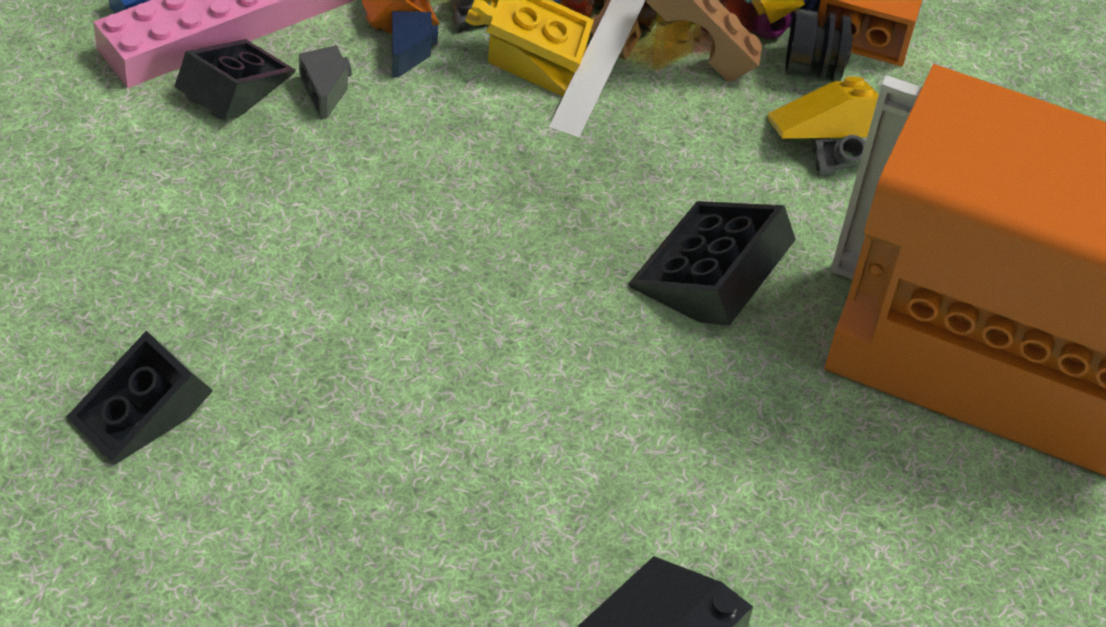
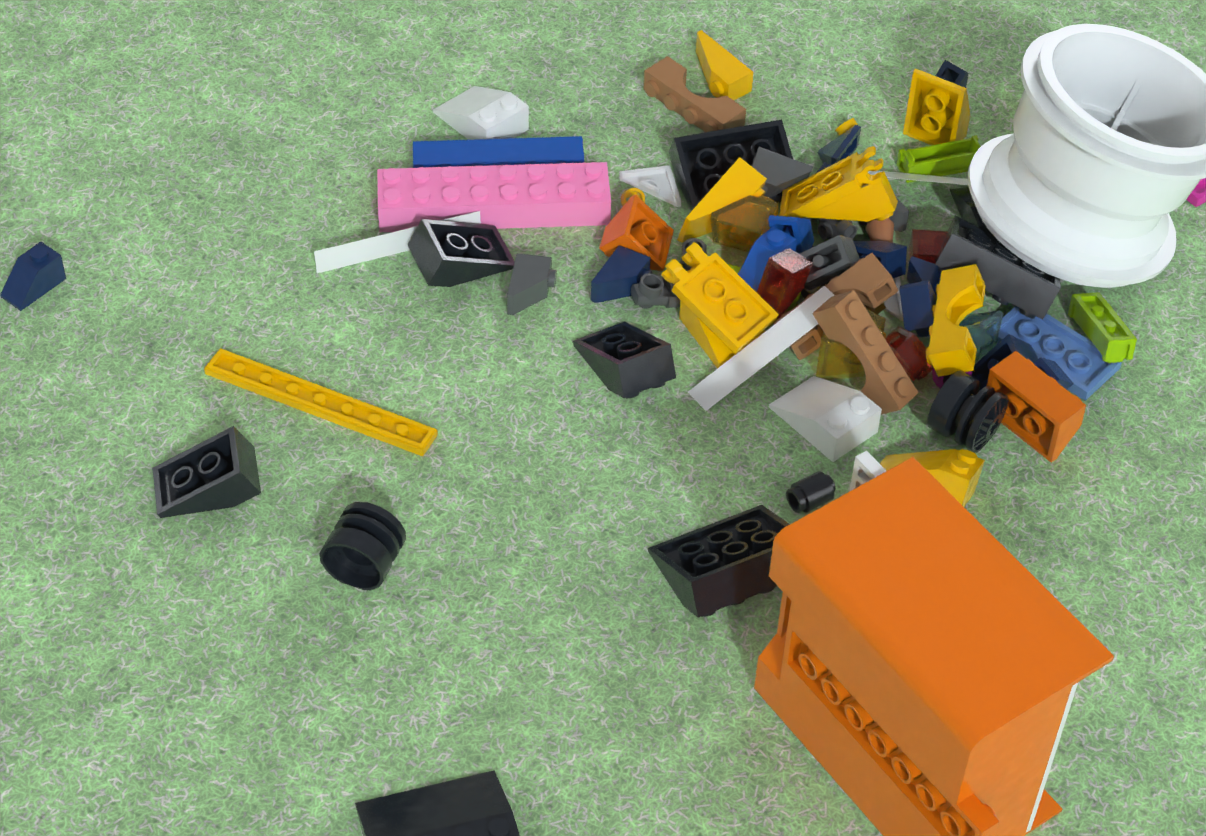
camera: 35 degrees right, 0 degrees up
(141, 101) = (375, 247): none -> white sticker
(195, 276) = (321, 402): none -> yellow tile
(369, 395) = (363, 546): none -> black wheel
(454, 44) = (654, 292): none -> dark grey plate
(476, 114) = (627, 359): none -> black slope
(694, 96) = (829, 415): none -> white slope
(735, 171) = (811, 492): none -> black brick

